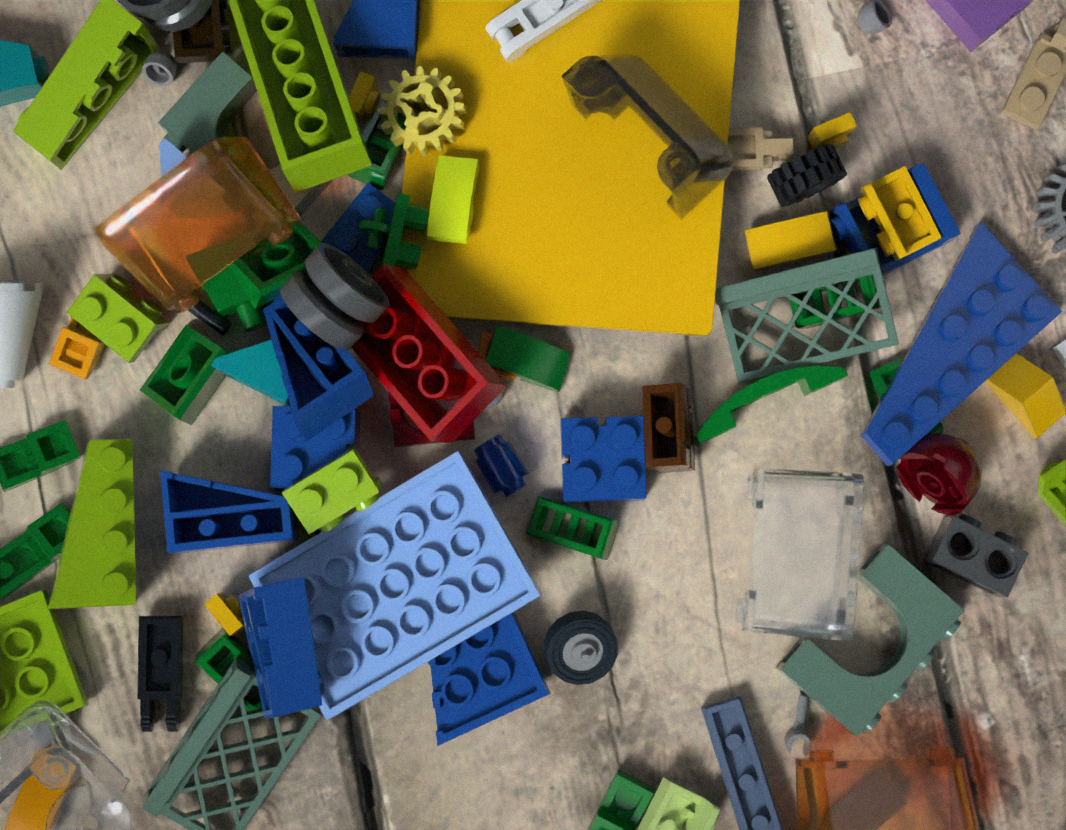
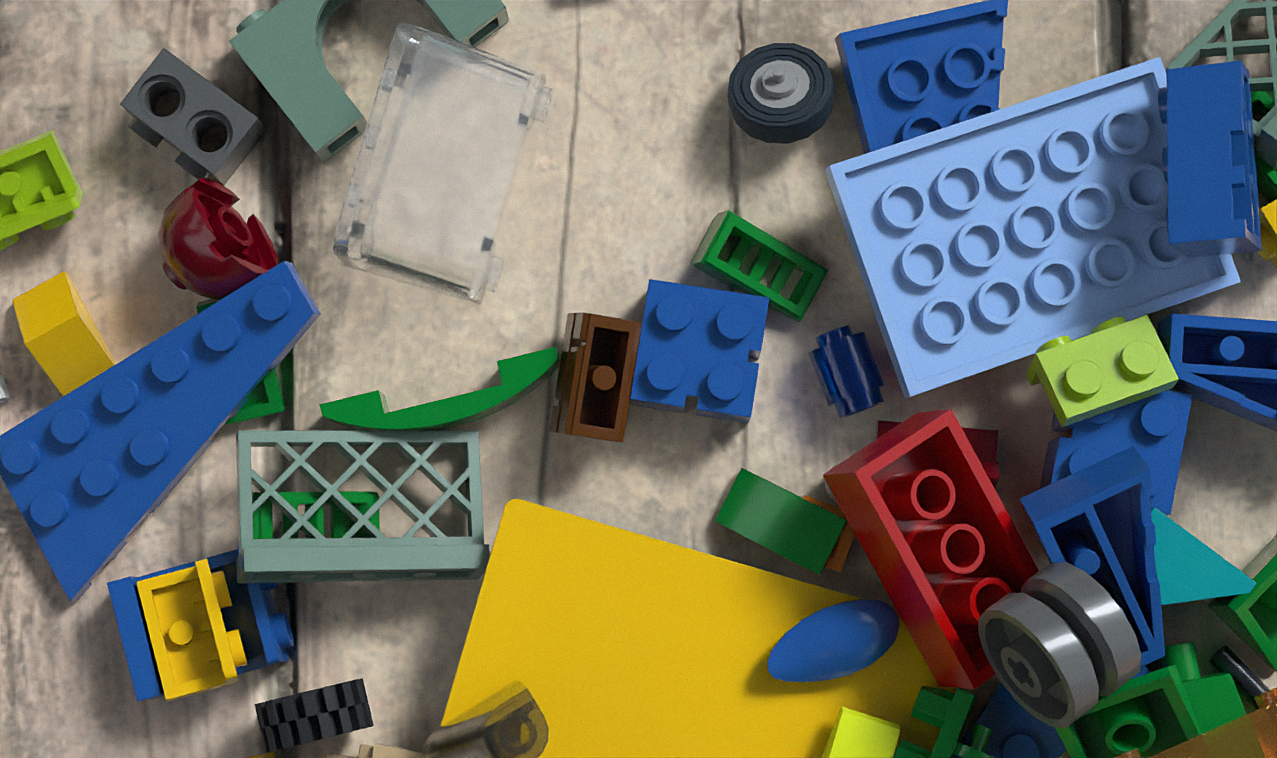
camera: 165 degrees left, 0 degrees up
(479, 283) = (835, 642): none -> blue arm
(790, 240) = (357, 625): yellow slope -> none

